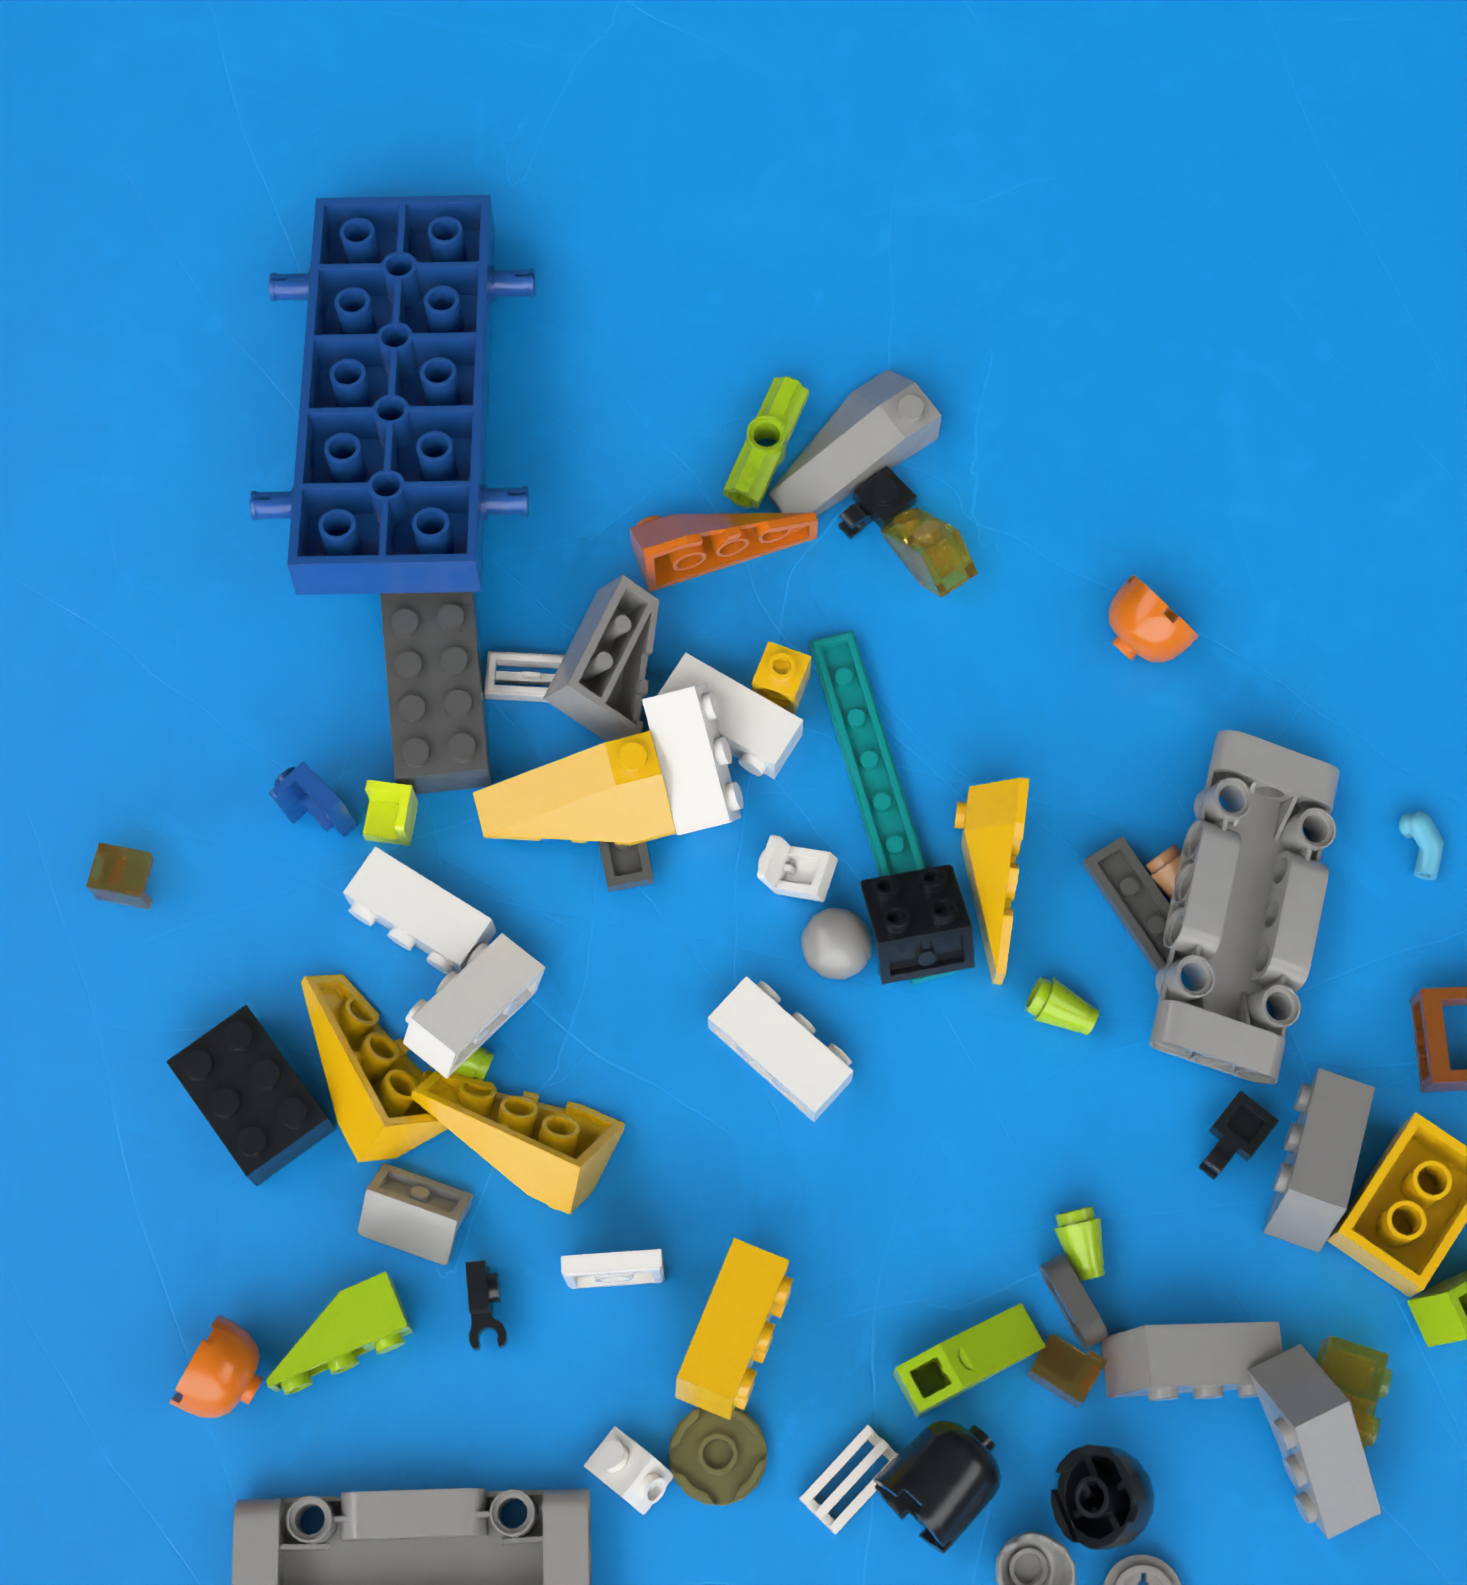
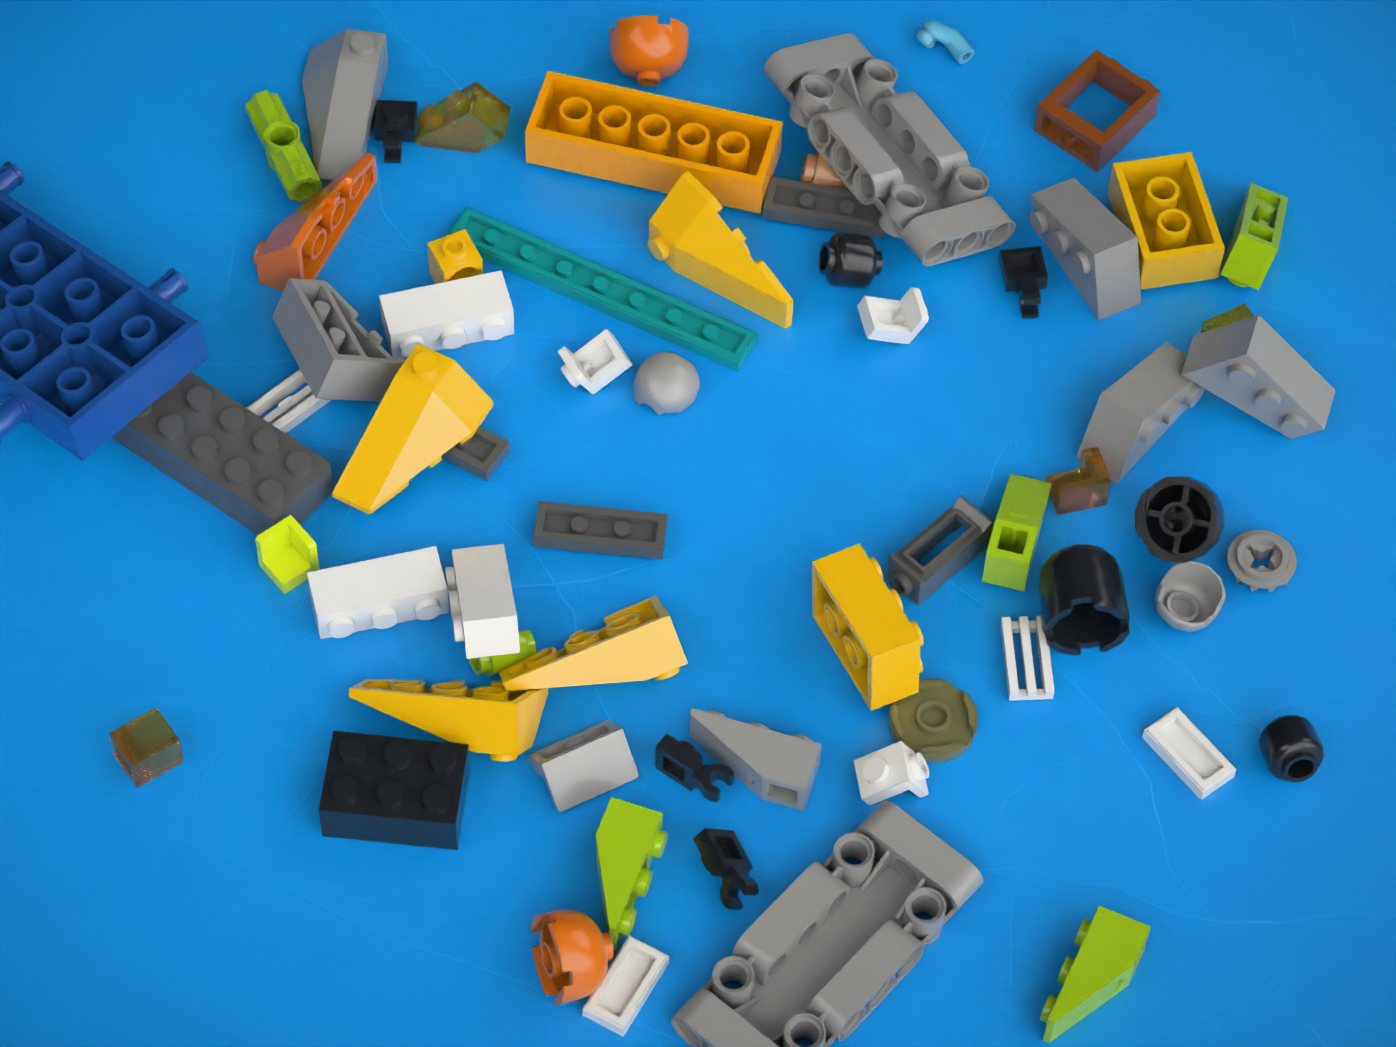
camera: 50 degrees left, 15 degrees down
(247, 1432) = (626, 986): none -> white tile
(302, 791) = (233, 578): blue bracket -> none
(424, 1408) = (726, 859): none -> black plate
(543, 1362) = (766, 761): none -> light grey slope
(613, 1268) = (752, 664): white tile -> none
(642, 1024) = (600, 530): none -> dark grey plate
(693, 758) = (462, 338): white brick -> none
(781, 1047) = (704, 466): white brick -> none
(829, 1315) = (919, 582): none -> dark grey window
(919, 924) = (712, 316): black bracket -> none
(1058, 715) = (652, 140): none -> light orange brick
(1059, 1006) = (840, 299): lime cone -> none
(1073, 1301) = (1039, 444): dark grey beam -> none
(1081, 1065) = (893, 319): none -> white bracket
(1081, 1241) = (1005, 409): lime cone -> none
(1103, 977) = (850, 260): none -> black head

